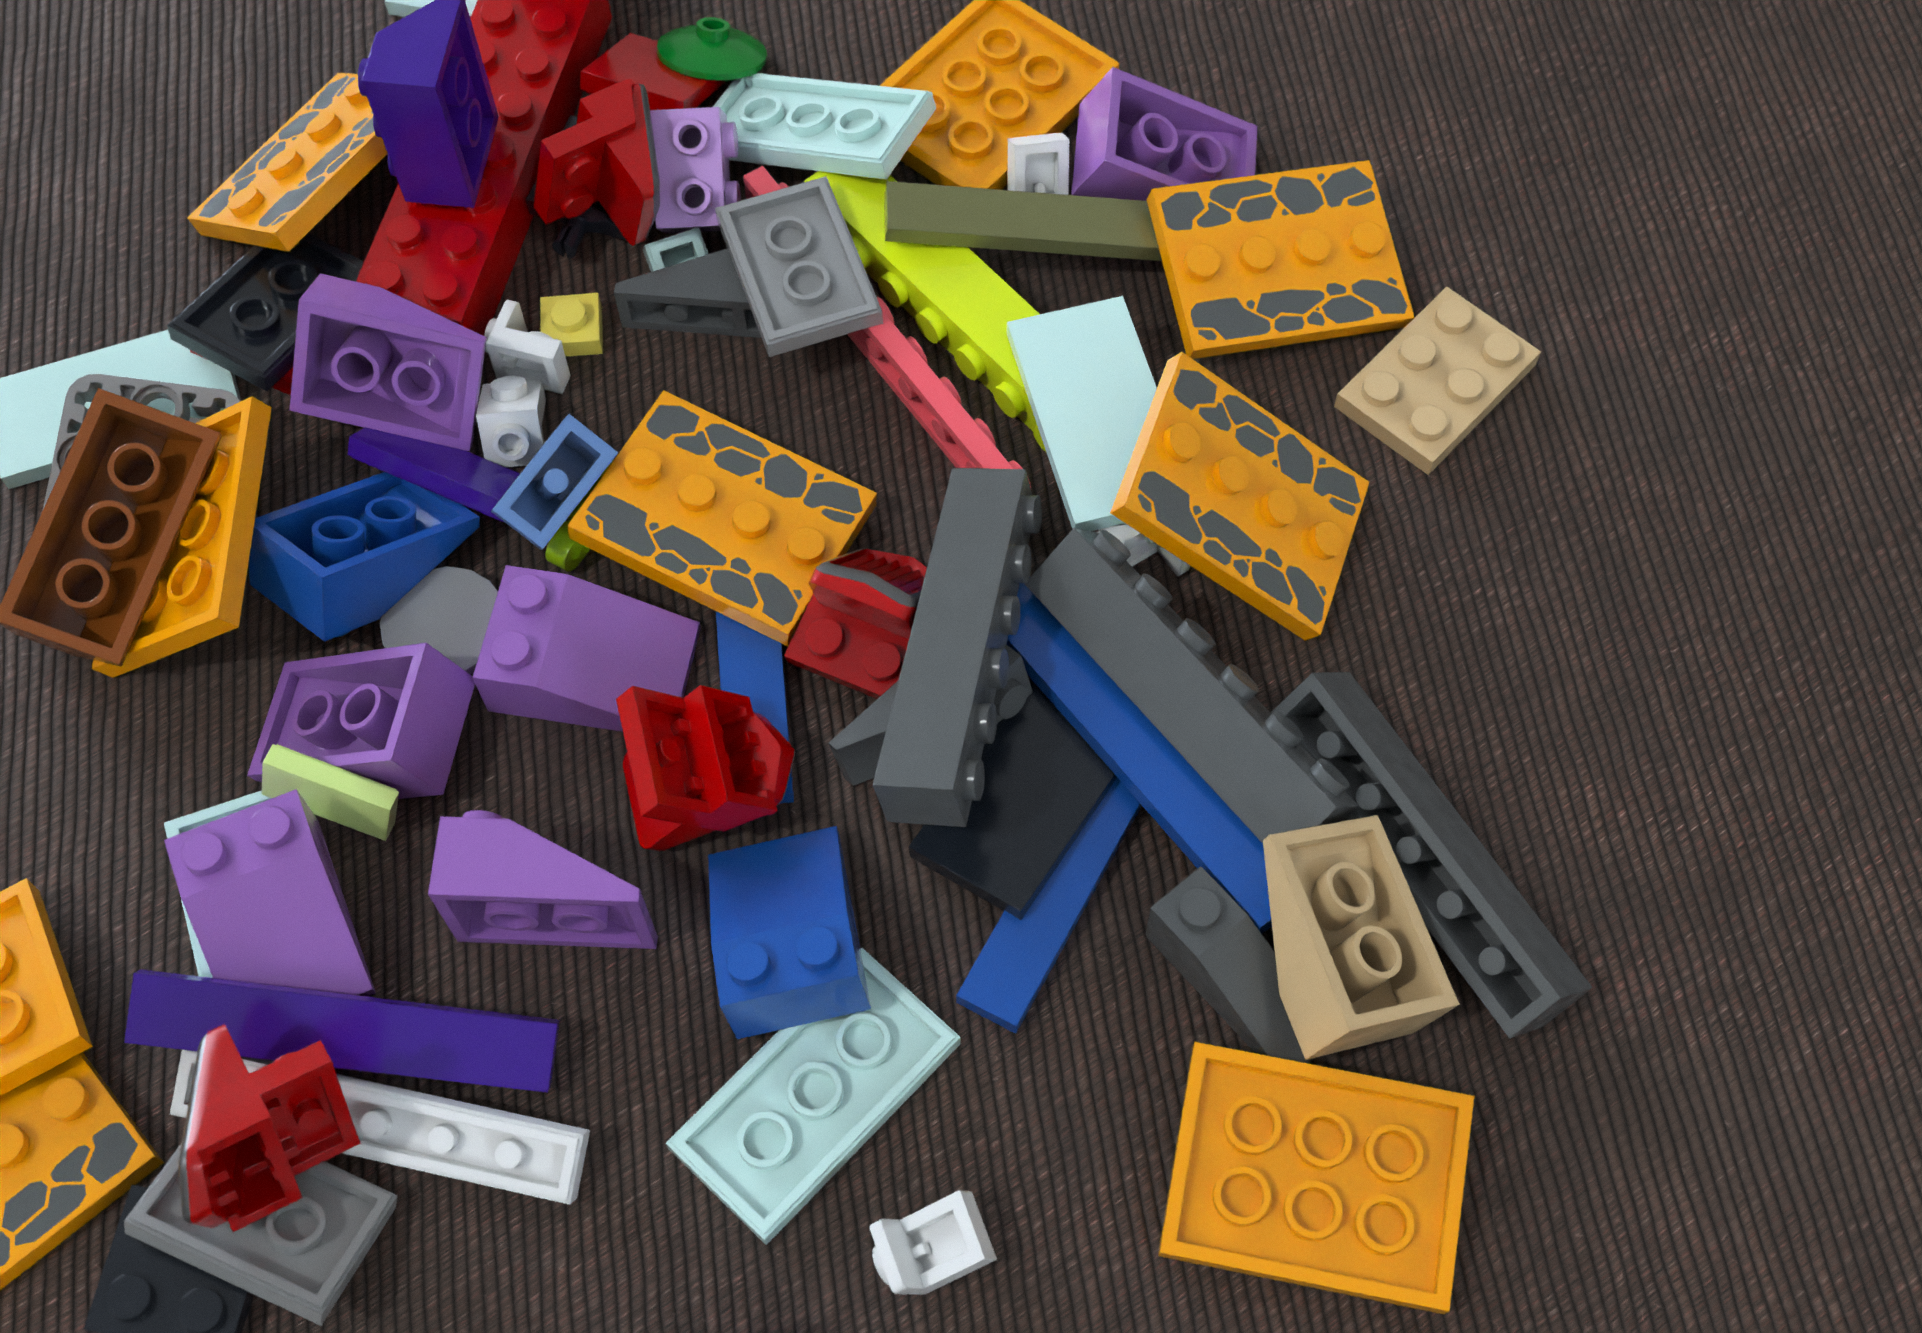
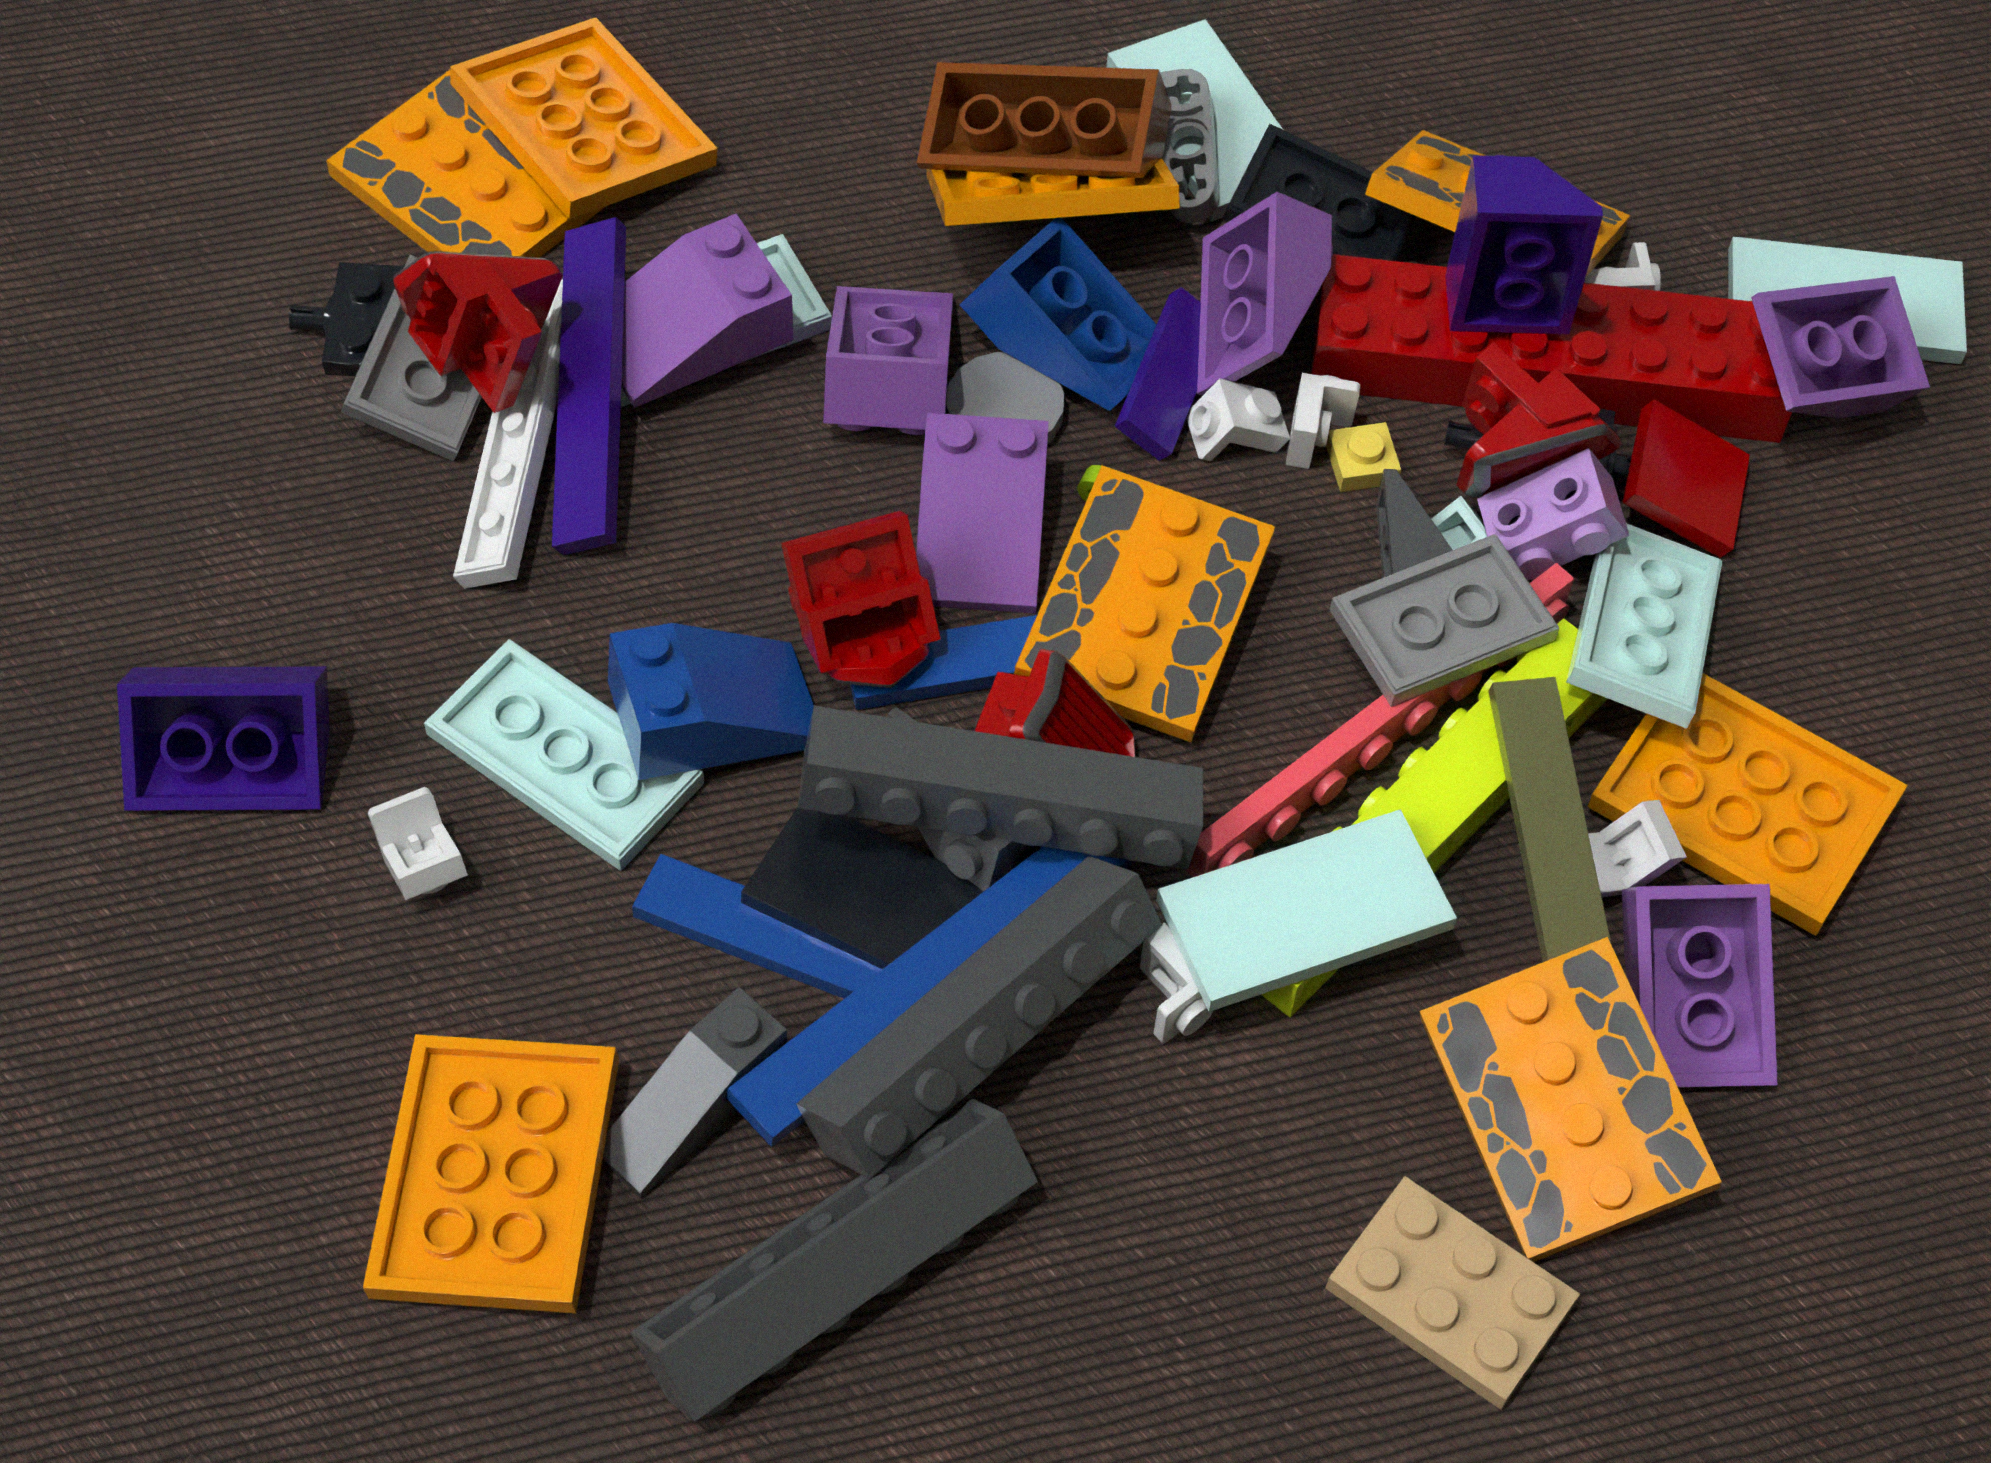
camera: 80 degrees right, 5 degrees down
(331, 791) = (813, 337): yellowish green tile -> none
(519, 888) = (732, 474): medium lavender slope -> none
(554, 481) = (1152, 449): medium blue slope -> none
(711, 51) = (1738, 529): green dish -> none
(1241, 497) = (1222, 1054): light orange plate -> none
(1349, 939) = (724, 1163): tan slope -> none

